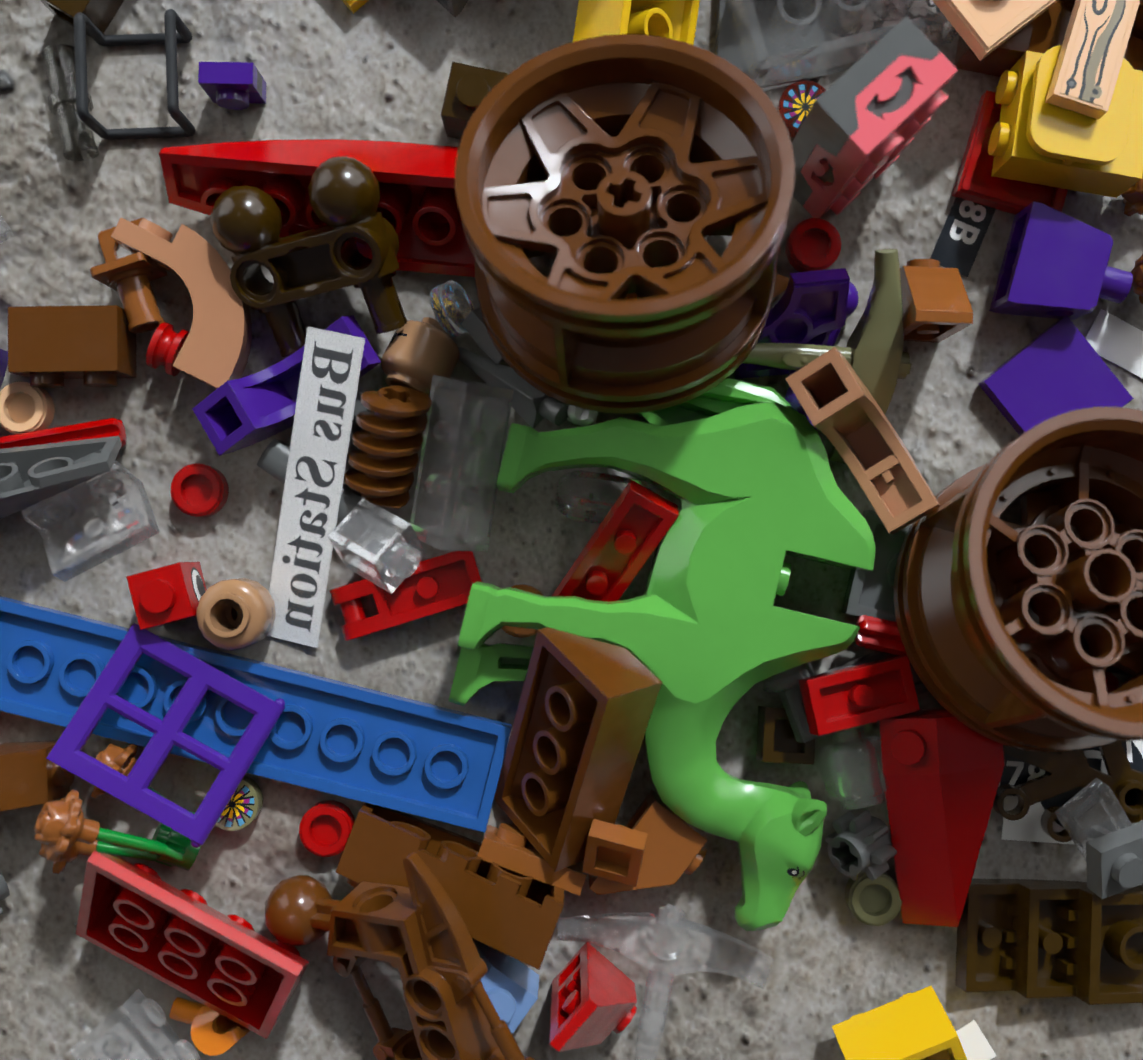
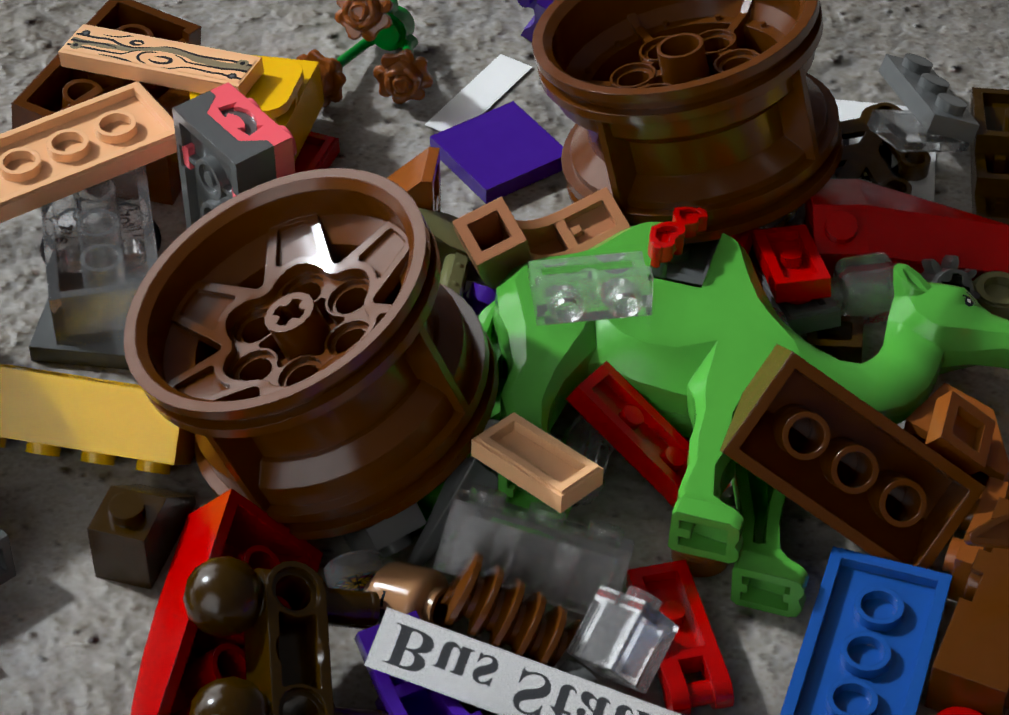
camera: 85 degrees left, 45 degrees down
(515, 456) = (537, 462): none -> light nougat tile
(741, 494) = (590, 288): none -> clear bracket
(823, 573) = (669, 236): none -> red piece
(1056, 267) = (379, 132): dark purple torso -> none

